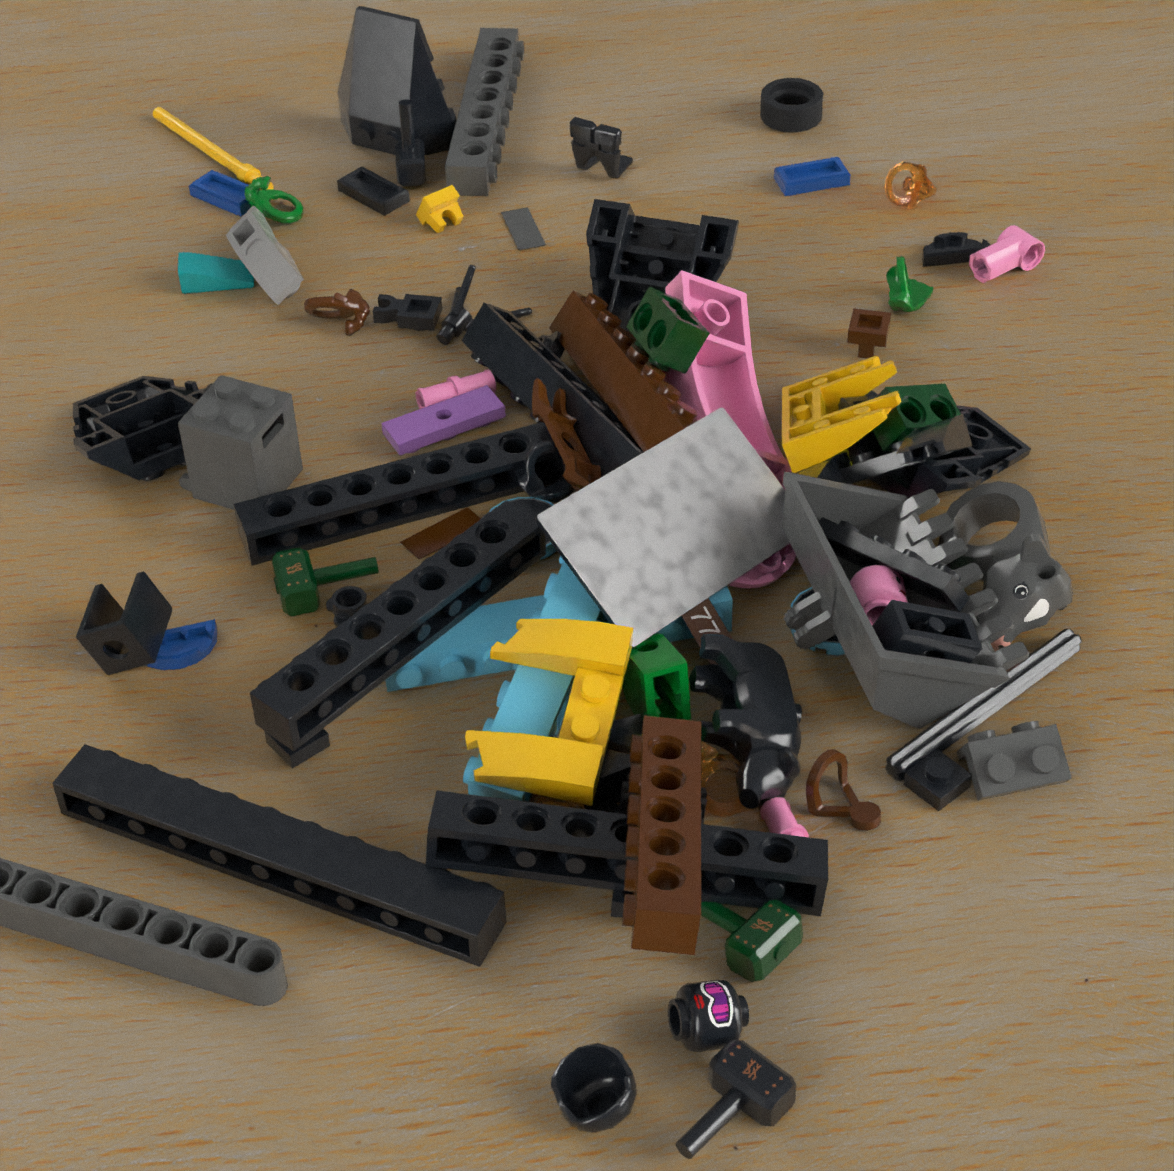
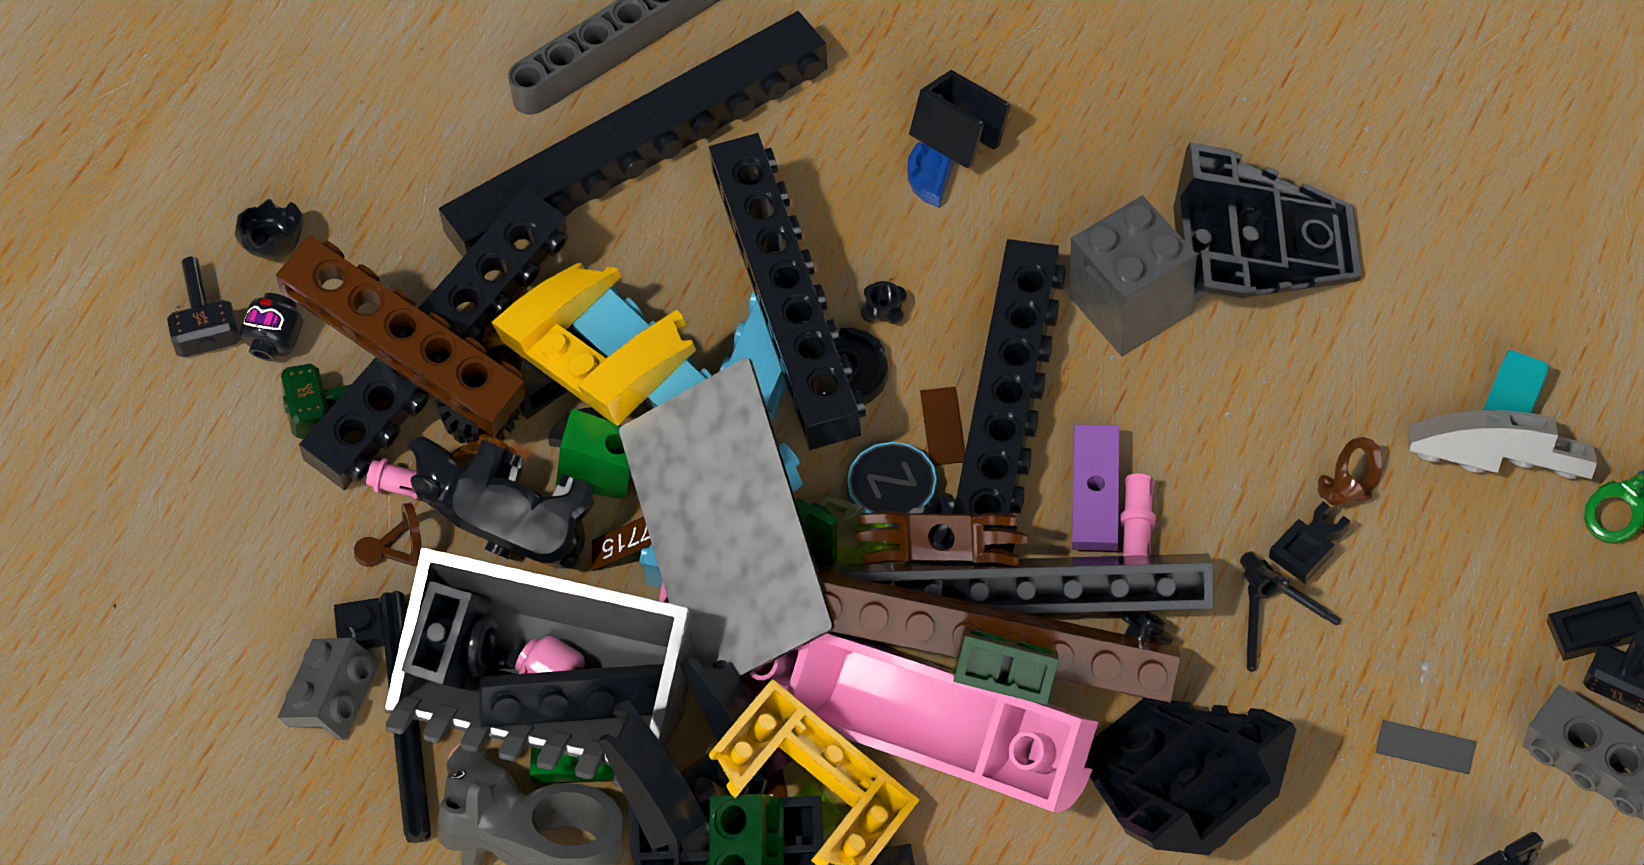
camera: 125 degrees right, 15 degrees up
(299, 582) = (938, 274): dark green piece -> none
(439, 205) = (1501, 659): yellow tile -> none

